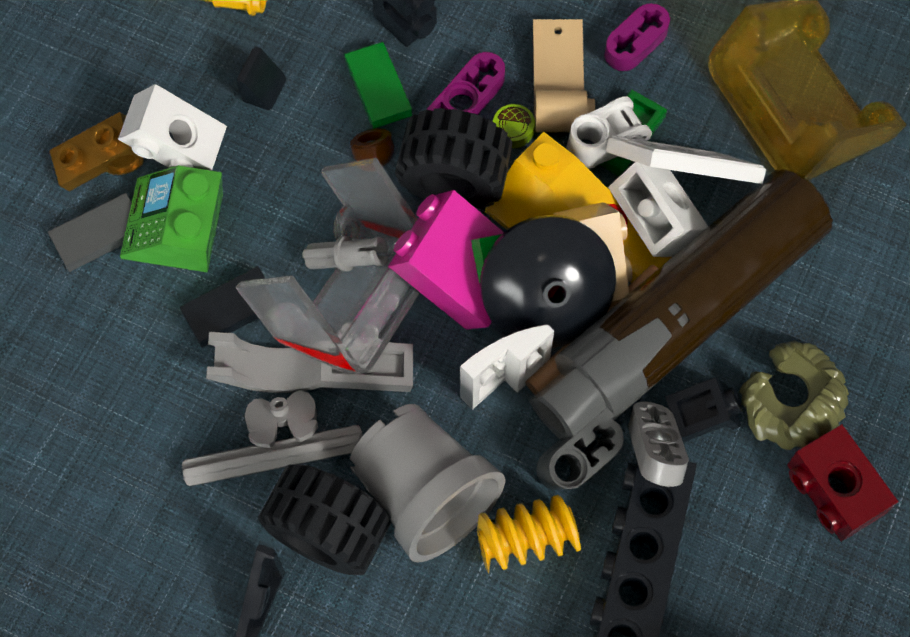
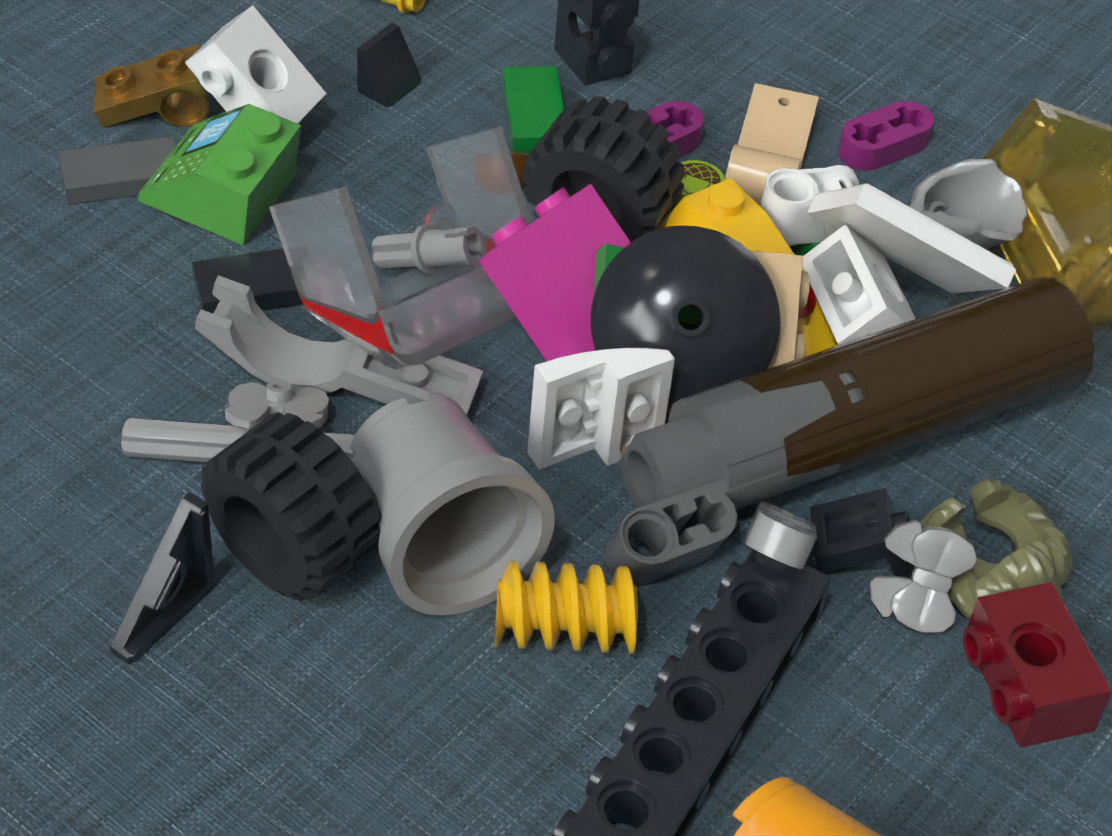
camera: 10 degrees right, 20 degrees down
(715, 102) = (973, 202): none -> light grey hair
(757, 450) = (923, 598): none -> light grey piece

